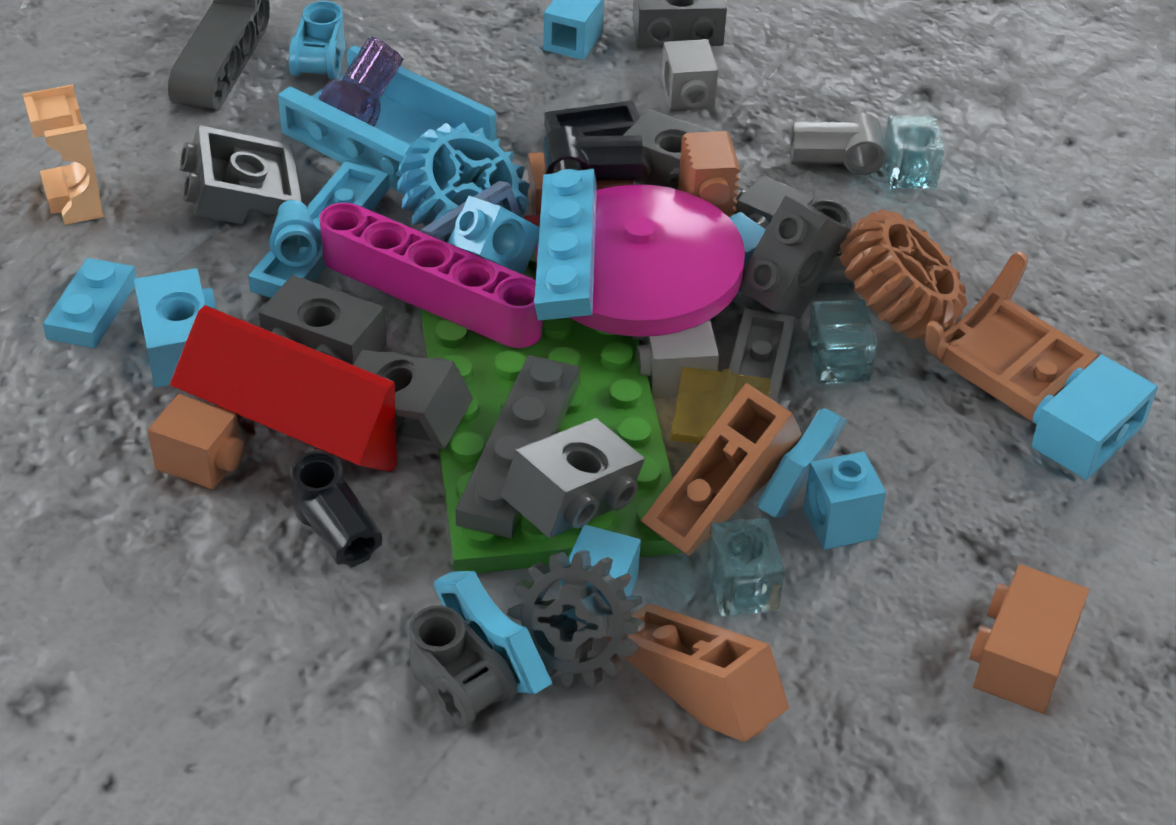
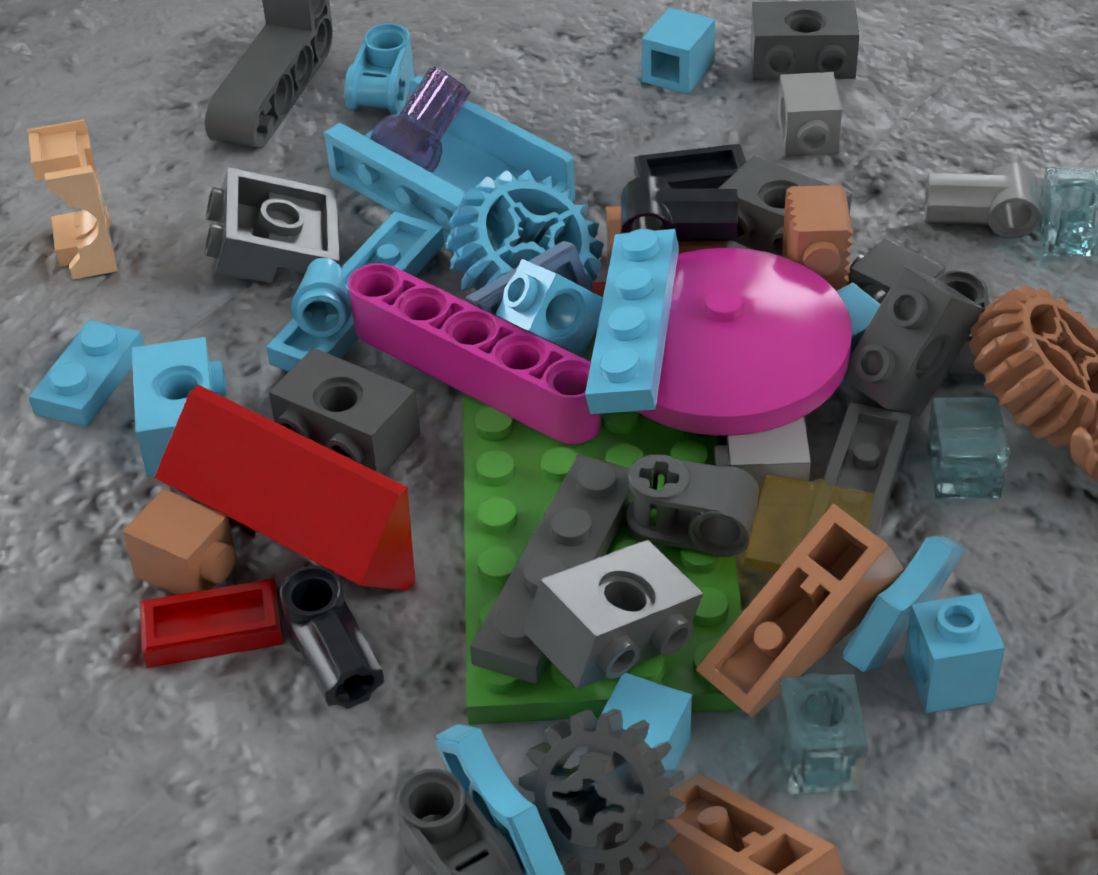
camera: 10 degrees right, 0 degrees up
(228, 503) = (210, 623): none -> red tile
(427, 395) = (450, 500): dark grey brick -> none
(630, 394) = (697, 509): none -> dark grey piece

